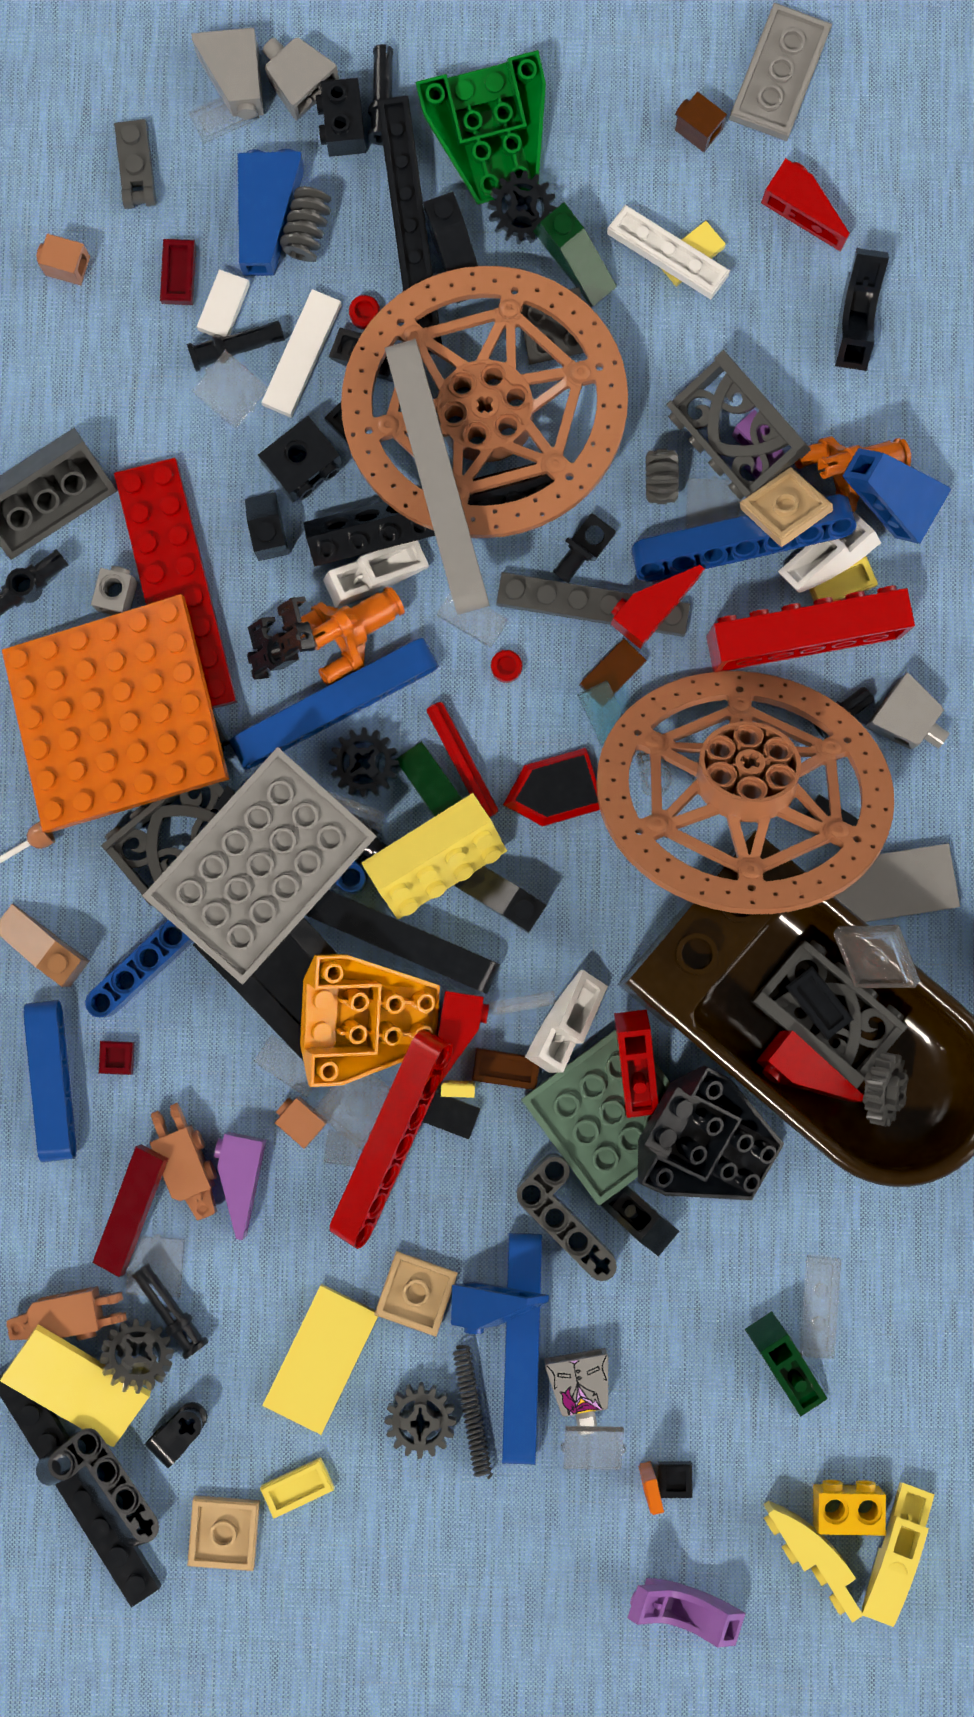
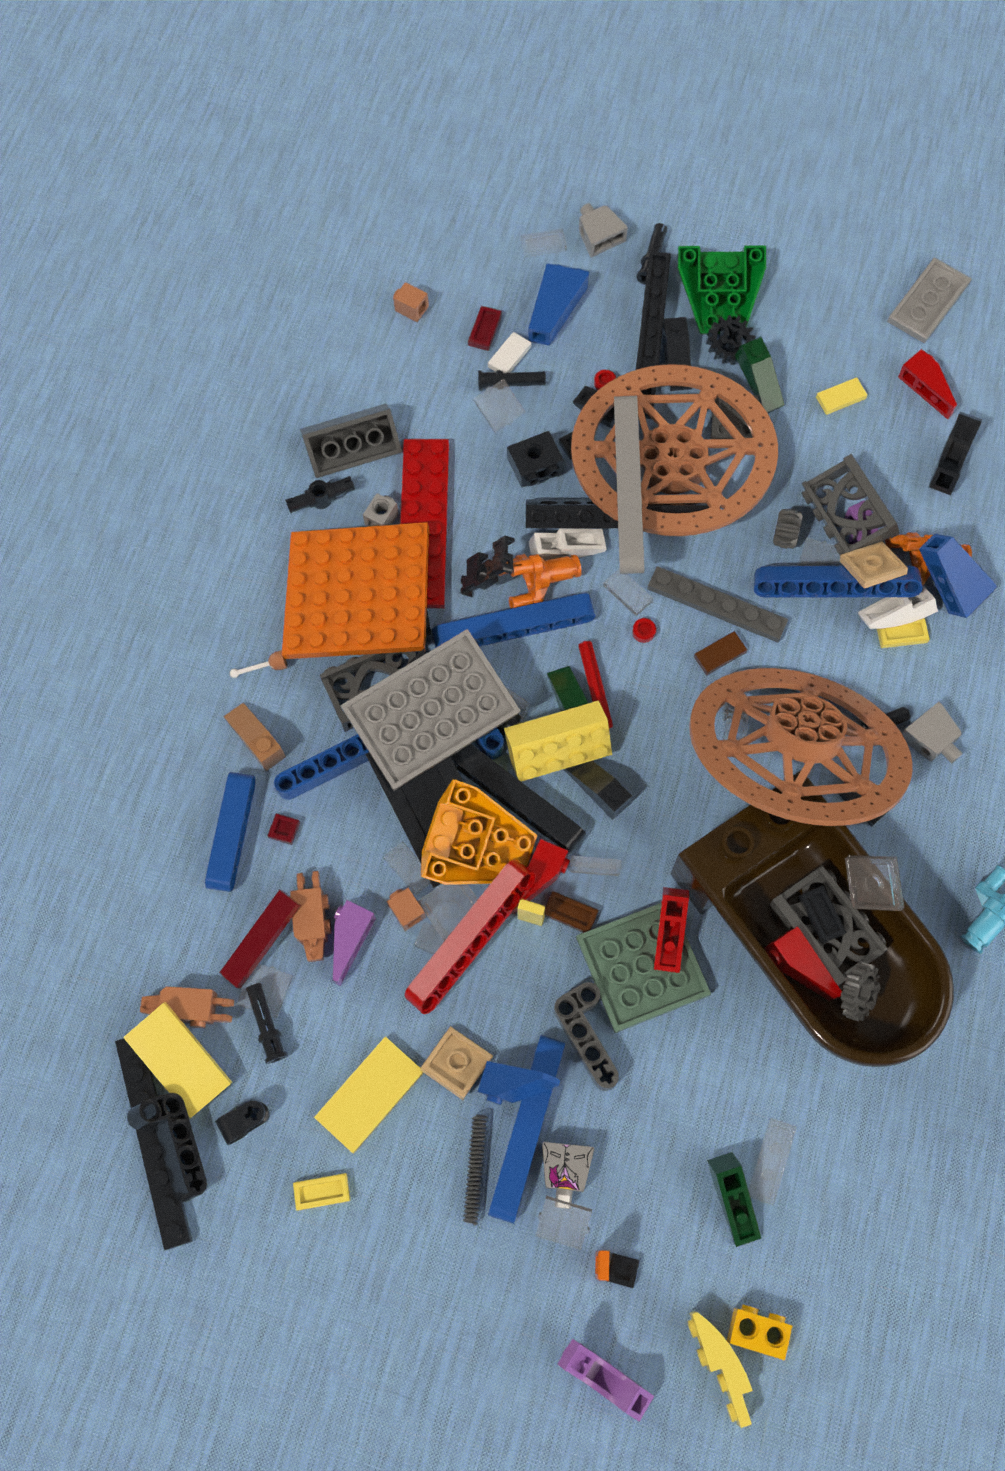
camera: 15 degrees right, 15 degrees down
(135, 163) = (476, 257): dark grey plate -> none
(143, 1368) = (230, 1049): dark grey gear -> none
(223, 1533) = (253, 1212): tan tile -> none
(233, 68) = (557, 215): light grey slope -> none
(266, 526) = (498, 499): black slope -> none
(301, 353) = (554, 396): white tile -> none
(304, 222) = (580, 316): dark grey piece -> none
(342, 117) = (623, 260): black brick -> none
(353, 773) = (530, 660): black gear -> none
(433, 1420) = (416, 1157): dark grey gear -> none
(452, 1115) = (519, 935): black tile -> none
(555, 789) = (658, 723): black tile -> none
(567, 1023) = (625, 888): white slope -> none
(581, 549) = (717, 564): black bracket -> none
(601, 709) = (705, 671): clear light blue tile -> none
(641, 1220) = (646, 1051): black slope -> none
(649, 607) = (759, 610): red slope -> none
(668, 252) = (826, 390): white tile -> none
(699, 121) = (866, 316): reddish brown brick -> none
(706, 1141) = (713, 1000): black wedge -> none
(810, 629) = (873, 654): red brick -> none
(899, 1555) = (791, 1383): light yellow slope -> none
(904, 885) = (918, 853): light grey tile -> none

